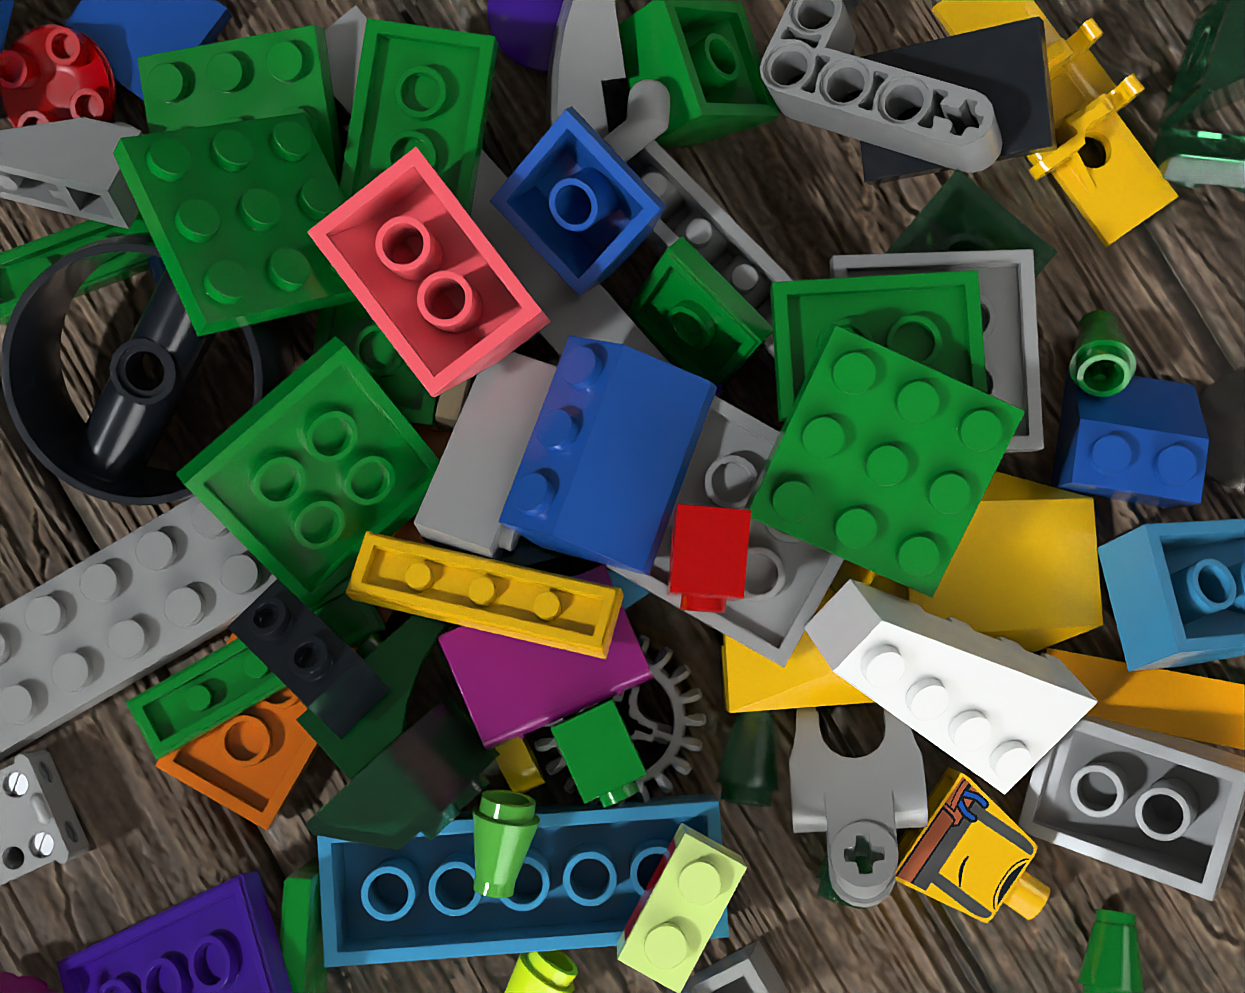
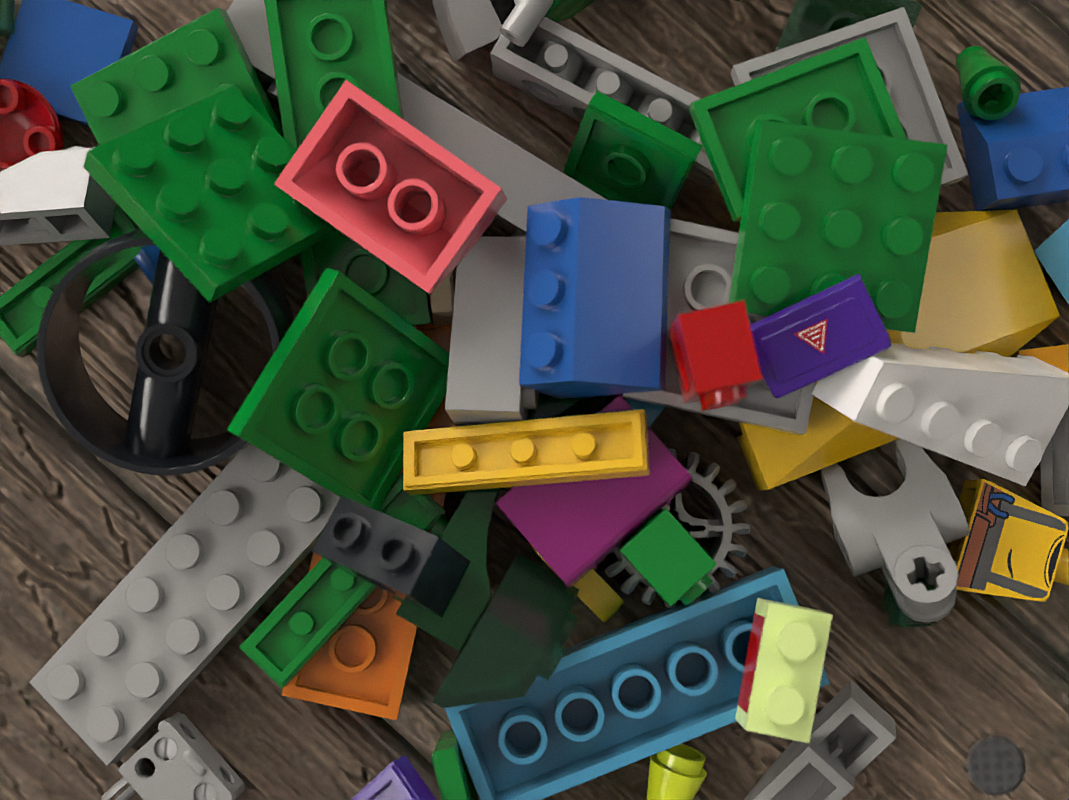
camera: 10 degrees left, 0 degrees up
(502, 837) = (608, 659): bright green cone -> none
(578, 203) = (499, 88): blue slope -> none
(750, 761) = (794, 528): clear green cone -> none
(824, 570) = (818, 337): none -> dark purple slope

